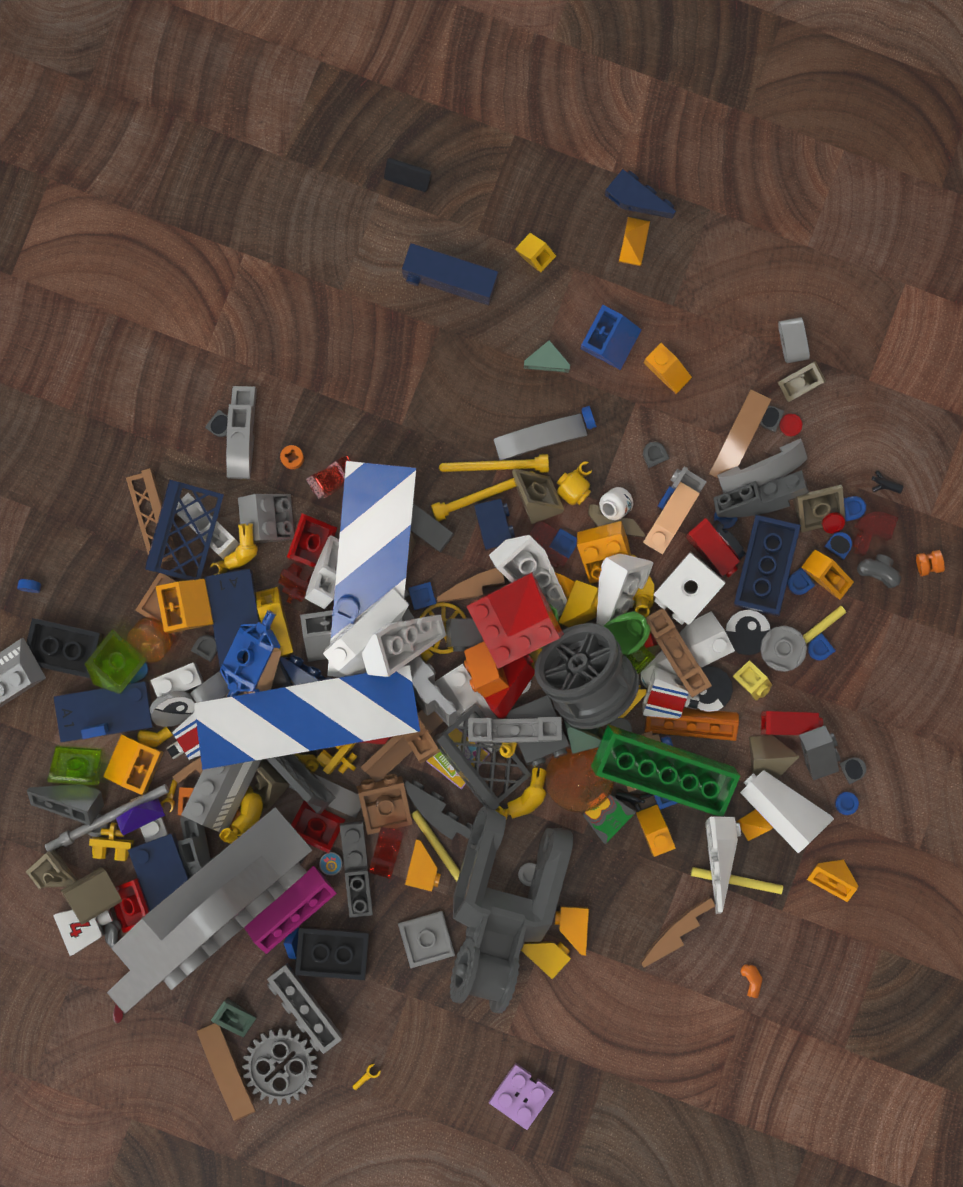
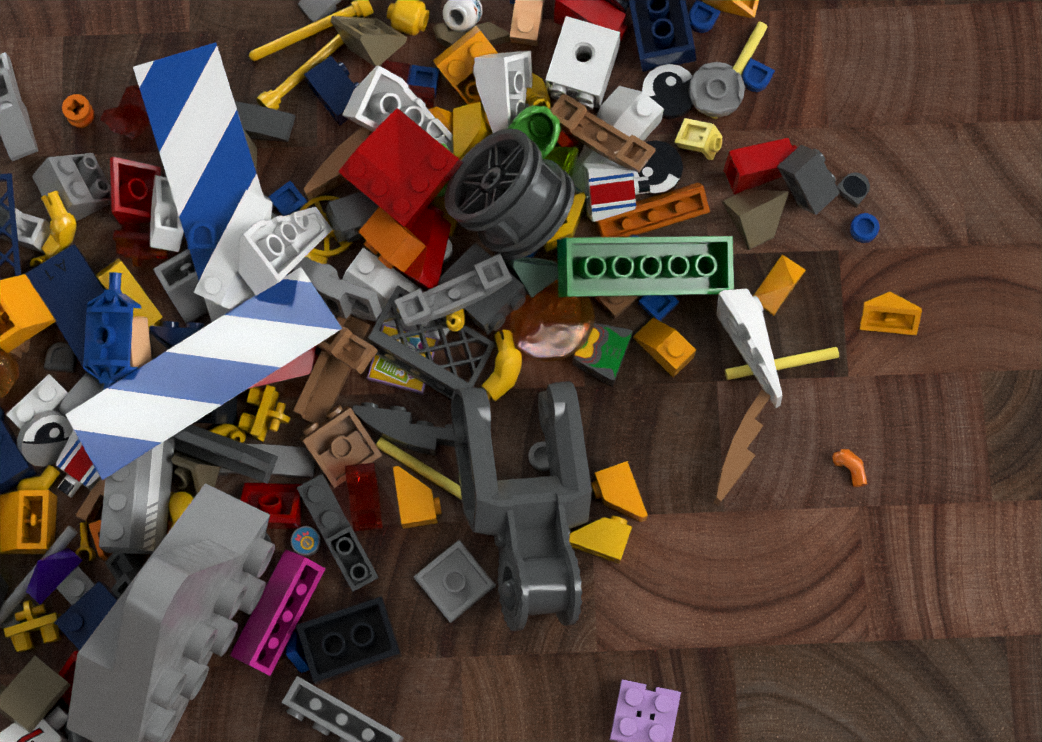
camera: 20 degrees left, 10 degrees down
(632, 798) = (624, 321): black bar -> none
(786, 810) = (800, 257): white slope -> none

